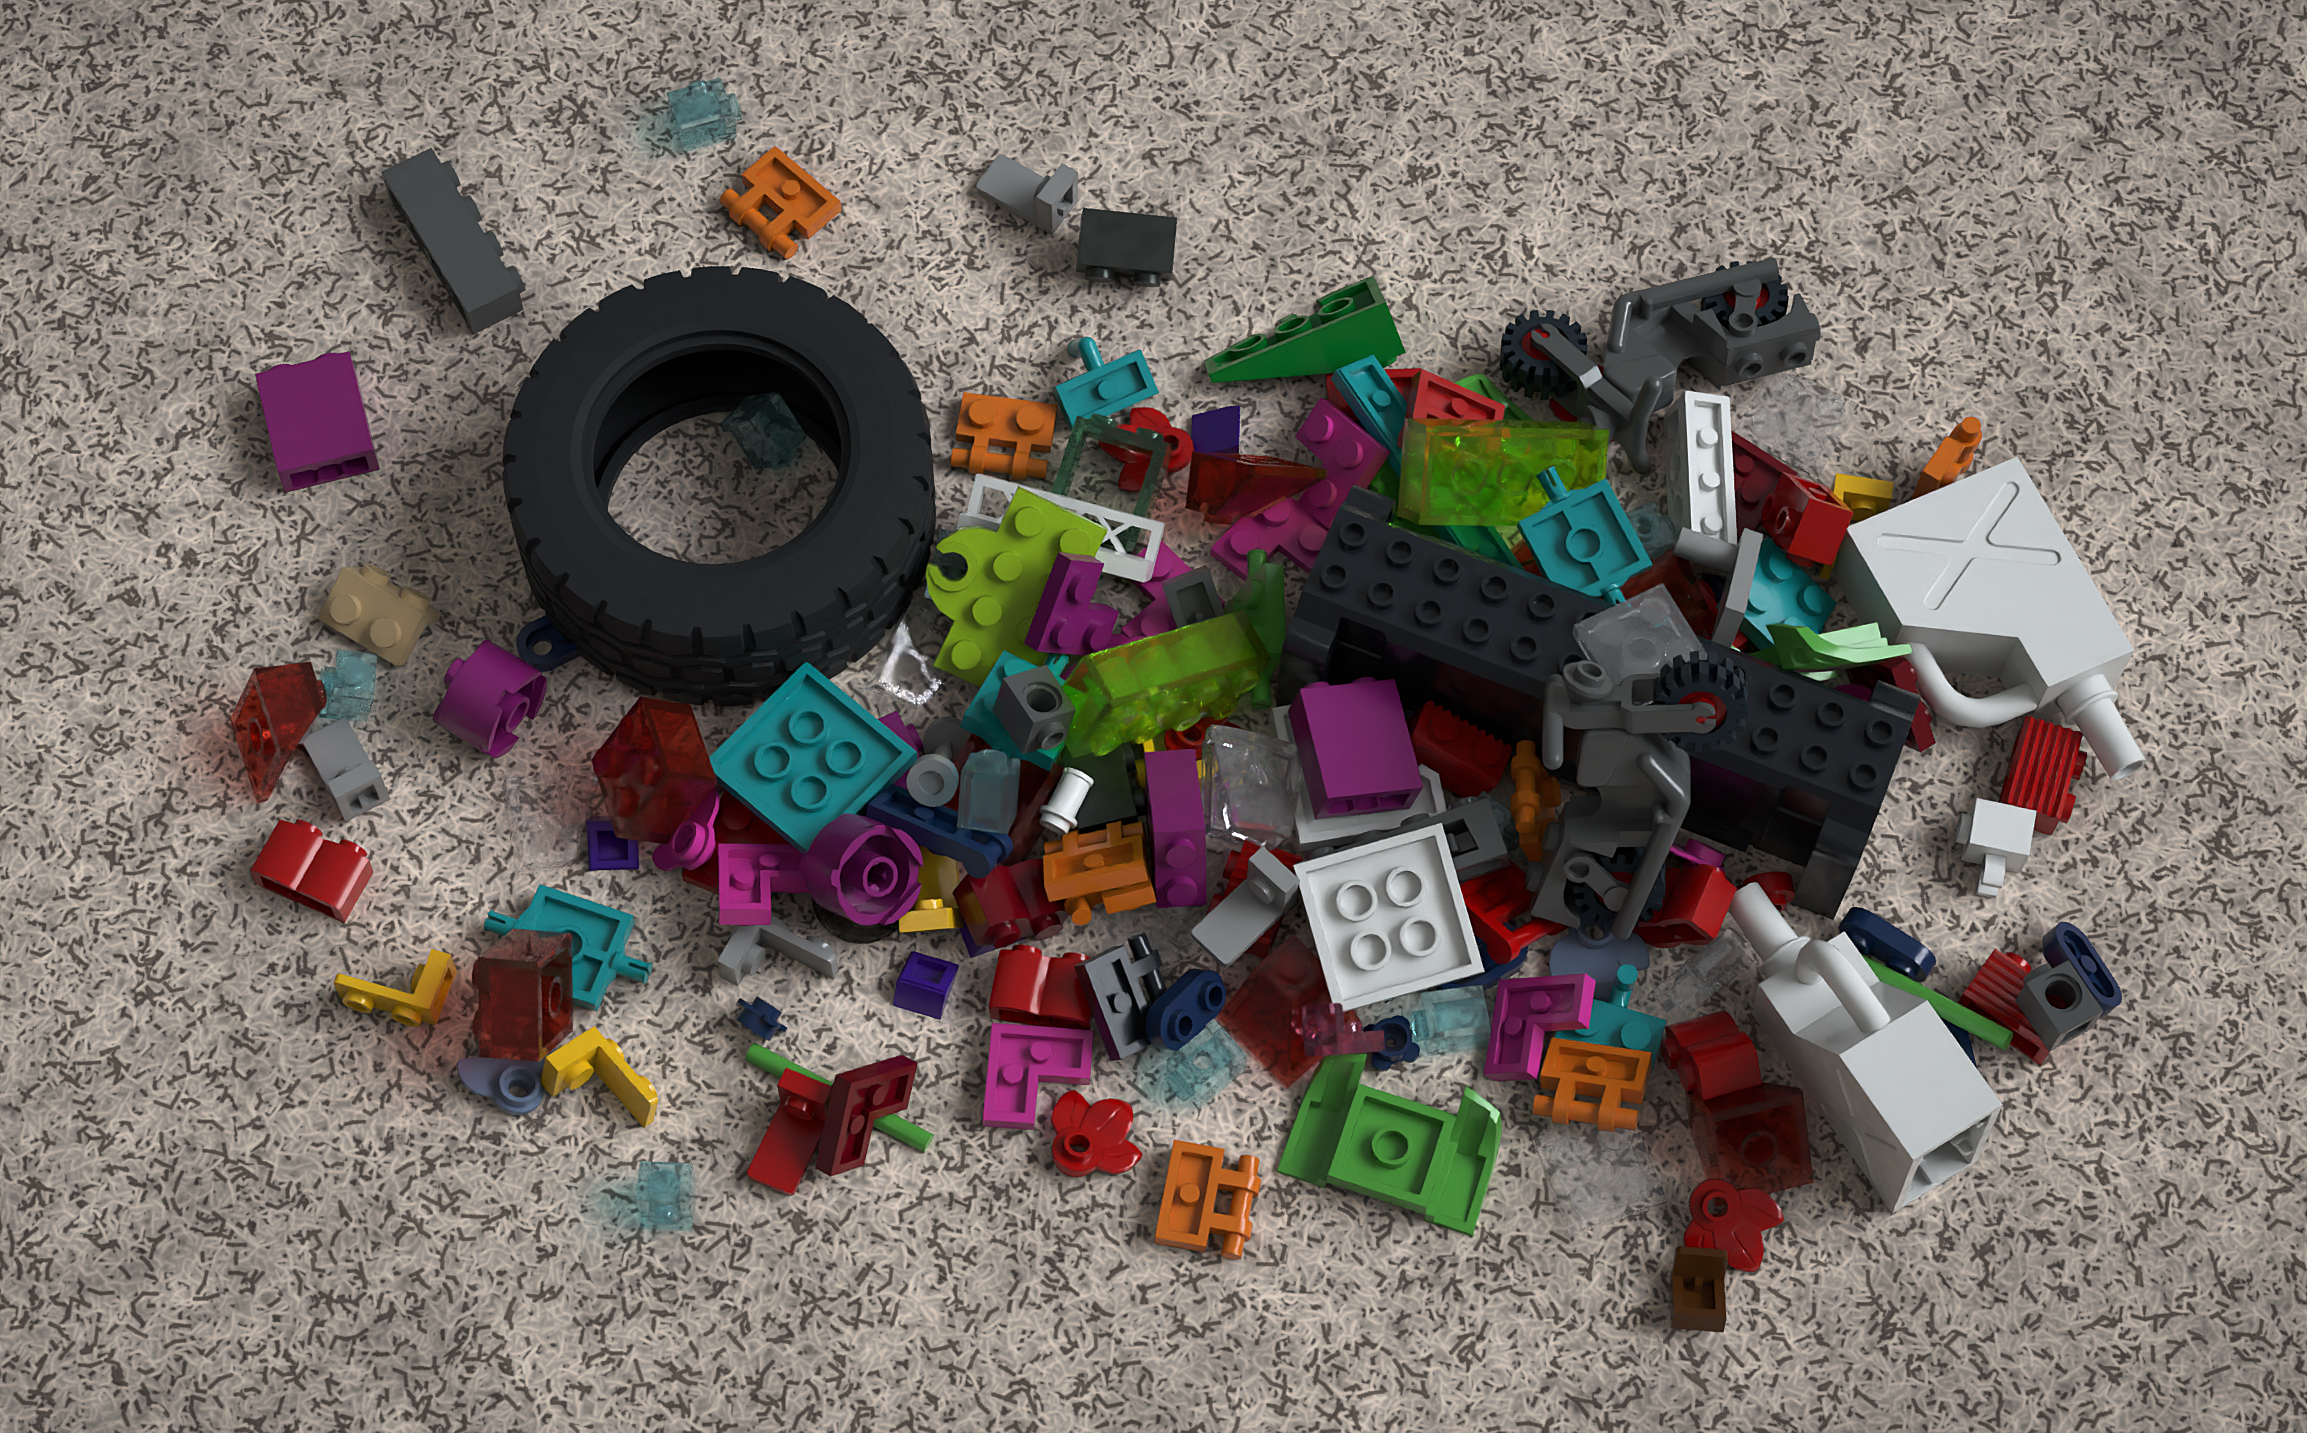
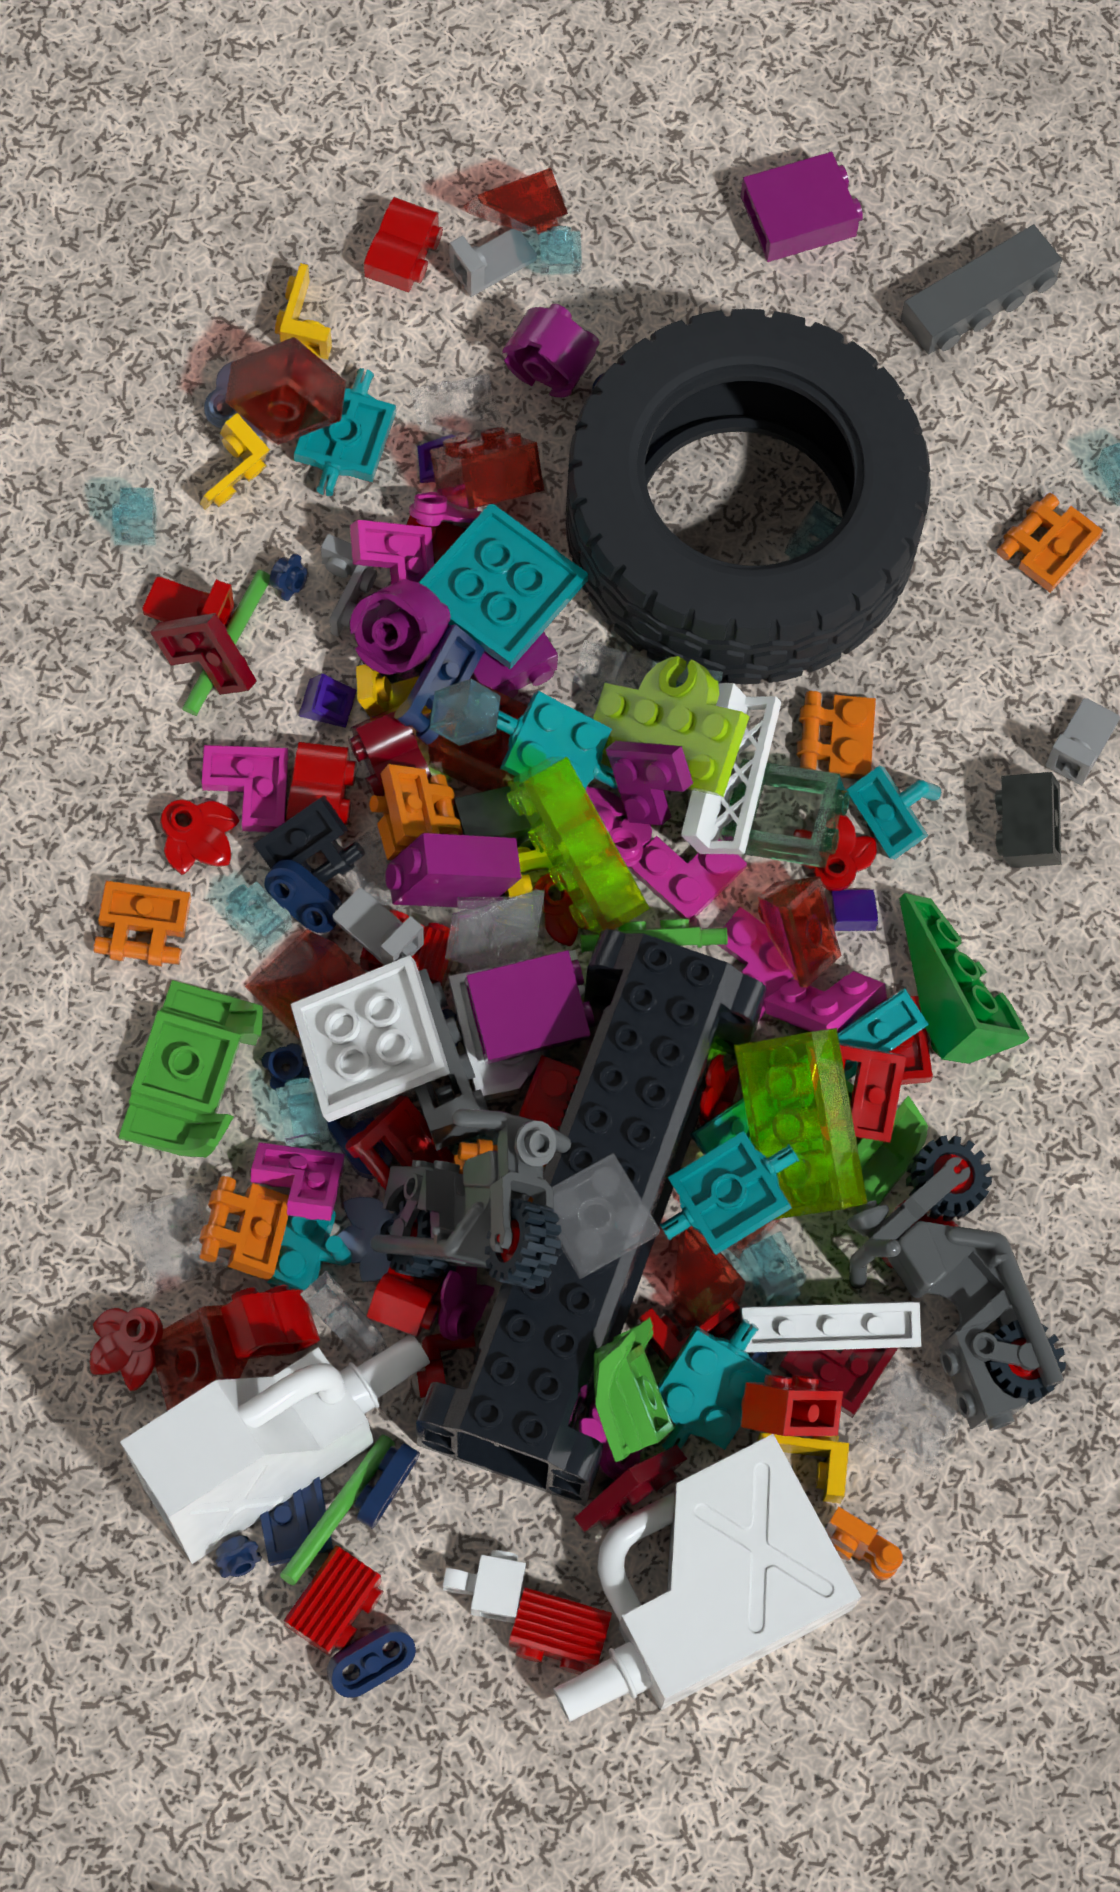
camera: 85 degrees right, 5 degrees up
(378, 612) = (633, 270): tan bracket -> none
(934, 776) = (484, 669): light grey wheel -> none
(1034, 709) = (553, 735): dark grey brick -> none
(1065, 801) = (473, 783): white pin -> none
(1192, 597) = (671, 885): dark grey bracket -> none
(1329, 1035) = (274, 1018): clear pink bracket -> none
(1698, 1289) = (64, 1316): reddish brown bracket -> none
(1734, 560) = (723, 1331): light grey piece -> none
(2053, 1024) = (311, 1639): dark grey brick -> none

